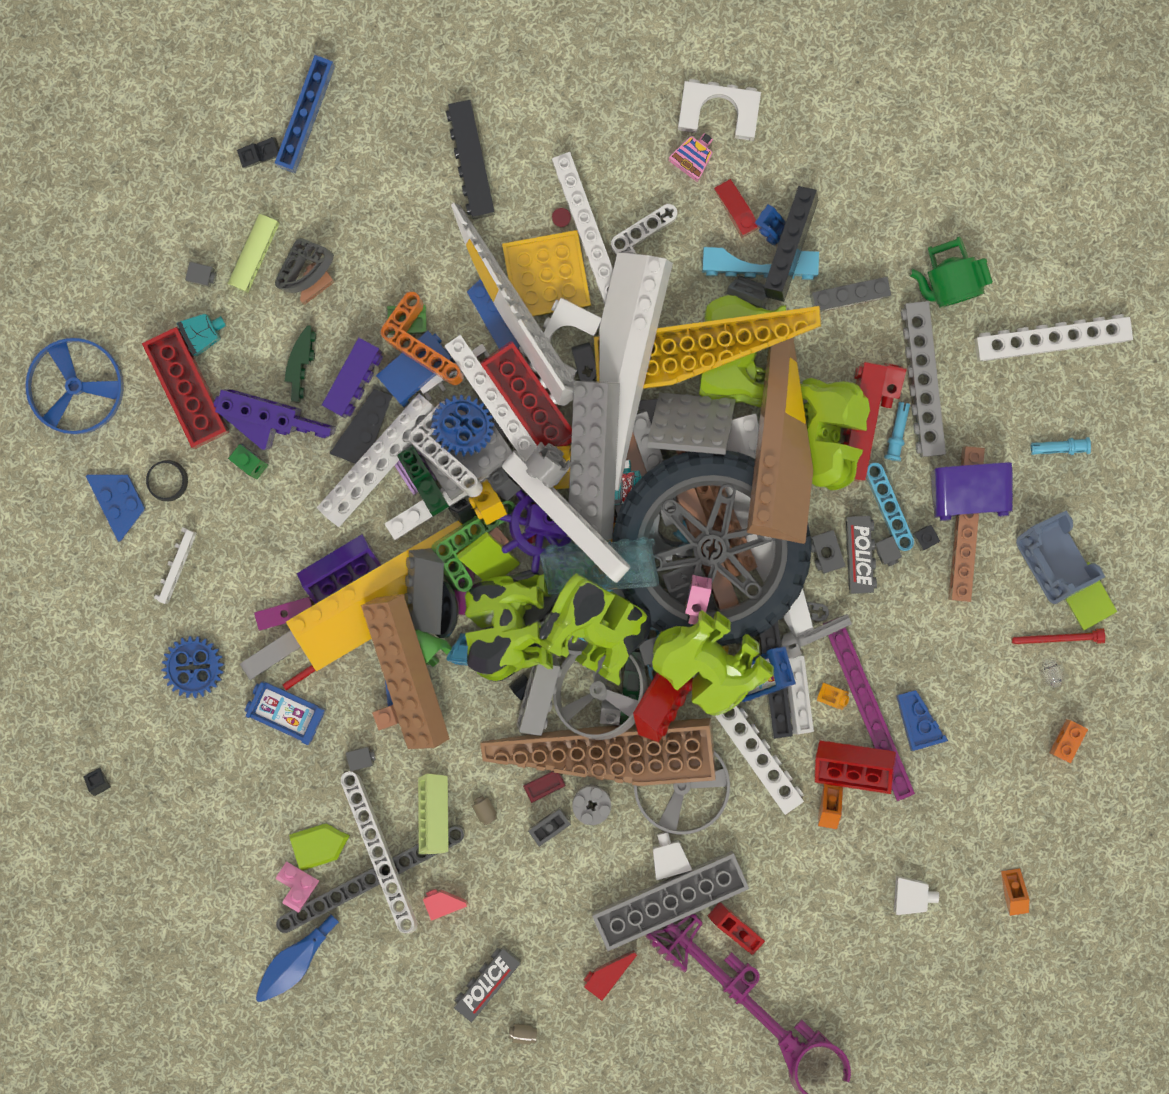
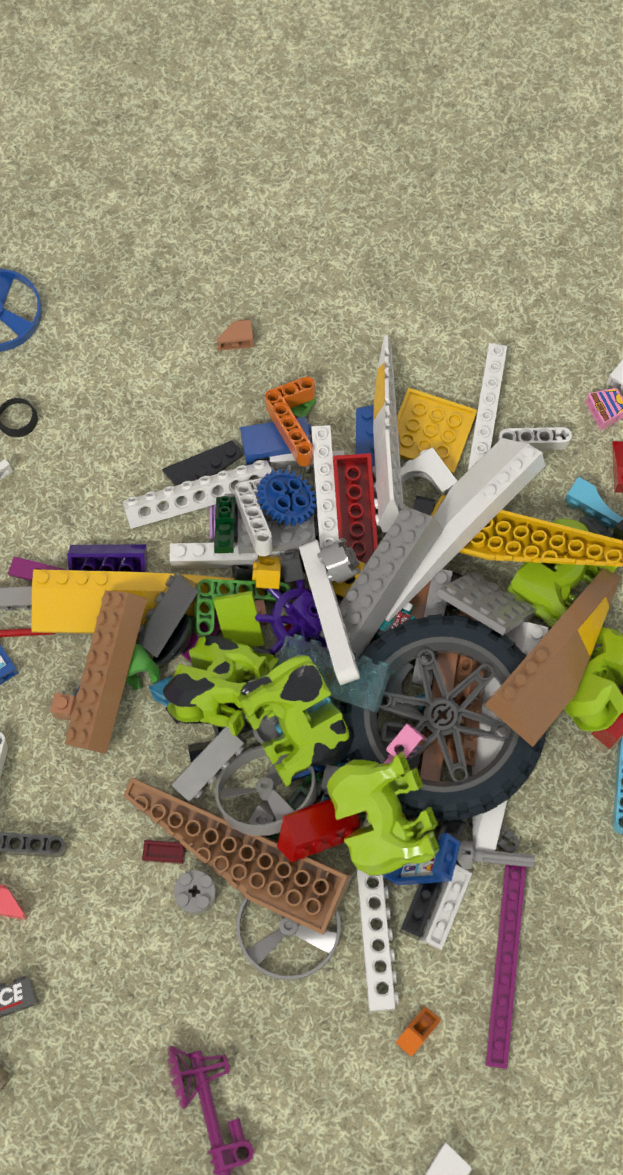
camera: 30 degrees right, 20 degrees down
(185, 387) = (81, 355): red brick -> none
(200, 274) = (151, 283): dark grey brick -> none
(201, 332) = (122, 324): teal torso -> none
(248, 461) = (90, 433): green torso -> none
(253, 253) = (204, 291): yellowish green brick -> none
(258, 153) = (258, 226): black slope -> none
(263, 418) = (129, 410): dark purple wedge -> none
(287, 276) = (230, 319): dark grey beam -> none
(300, 355) = (187, 383): dark green slope -> none
(305, 114) = (309, 214): blue brick -> none
(352, 378) = (219, 418): dark purple brick -> none
(360, 758) = (19, 729): dark grey brick -> none
(433, 814) = (48, 814): yellowish green brick -> none
(471, 159) = (421, 315): black brick -> none
(484, 810) = (96, 840): dark tan brick -> none
(549, 826) = (144, 889): dark grey brick -> none
(561, 217) = (469, 396): dark red tile -> none
(605, 977) = (103, 1068): red slope -> none
(669, 857) = (236, 987): white torso -> none
(670, 901) = (211, 1028): light grey brick -> none
(735, 928) = (258, 1098): red slope -> none
(833, 696) = (479, 927): light orange bracket -> none
(835, 560) = (552, 781): dark grey brick -> none
(855, 767) = (463, 1005): red slope -> none
(860, 554) = (575, 810): dark grey brick -> none
(888, 551) = (603, 822): dark grey brick -> none
(918, 723) = (546, 1003): blue wing -> none

